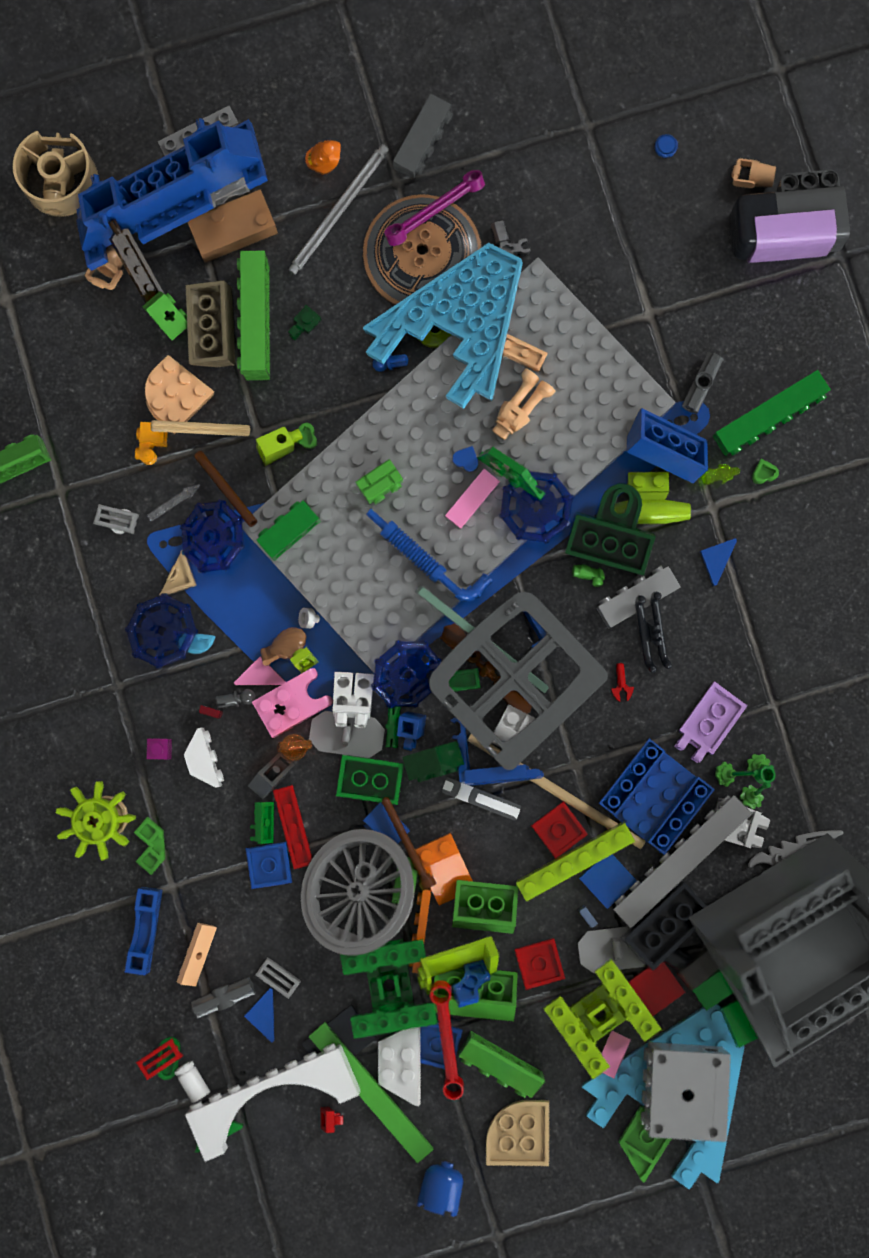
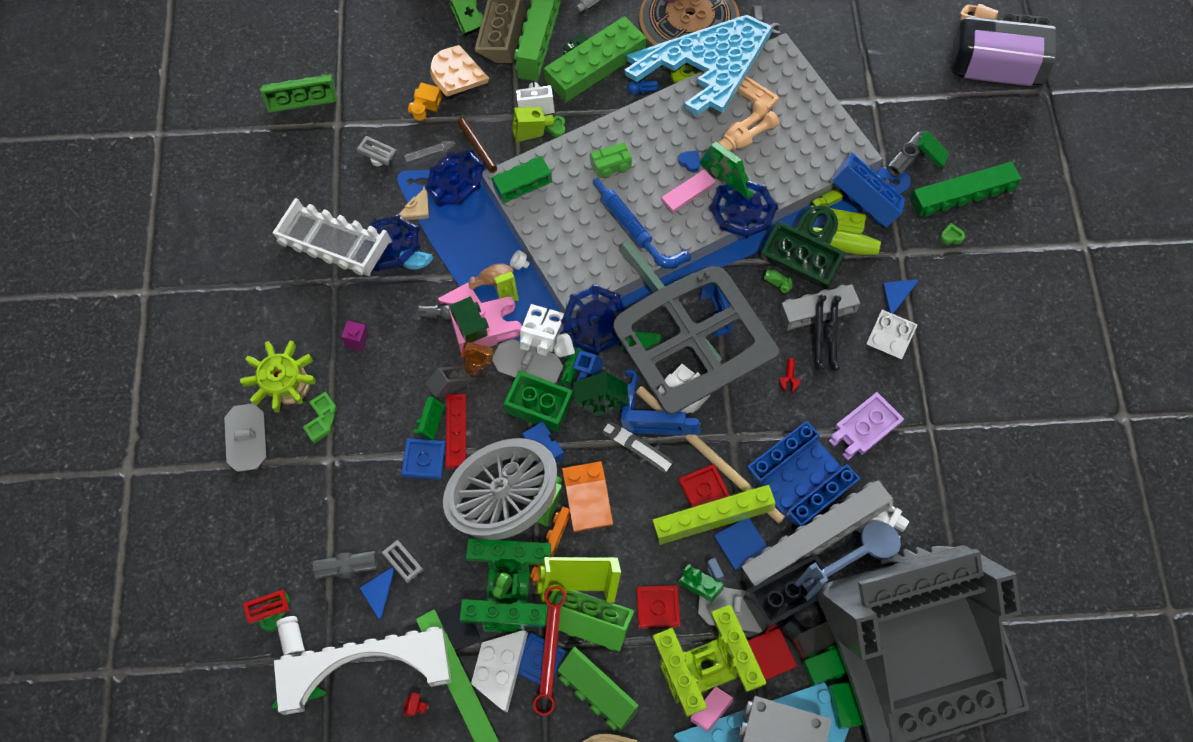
camera: 10 degrees right, 20 degrees down
(80, 887) = (245, 437): none -> light grey shield
(99, 643) = (331, 238): none -> window
(142, 945) = (281, 503): blue arch -> none
(196, 954) = (332, 520): light nougat tile -> none
(200, 428) = (469, 95): tan axle -> none
(202, 760) = (390, 353): white slope -> none
(210, 712) = (410, 316): dark red tile -> none
(274, 412) = (536, 97): none -> white brick
(276, 714) = (468, 319): none -> dark green brick
(328, 339) = (594, 59): none -> bright green brick
(381, 711) = (564, 345): none -> white tile
(386, 994) = (502, 585): none -> bright green tile
(425, 878) = (567, 495): reddish brown piece -> none
(452, 636) = (658, 321): reddish brown piece -> none
(467, 989) = (584, 604): blue tile -> none
(485, 906) = (617, 537): bright green slope -> none
(577, 933) = (701, 583): none -> green plate
(622, 463) = (828, 199): none -> lime bar
(719, 613) = (892, 334): none -> white plate
(722, 473) = (915, 227): clear neon green piece -> none
(728, 372) = (933, 149): none -> green tile
(745, 854) = (877, 539): none -> sand blue piece
(758, 768) = (904, 470): bright green plant -> none

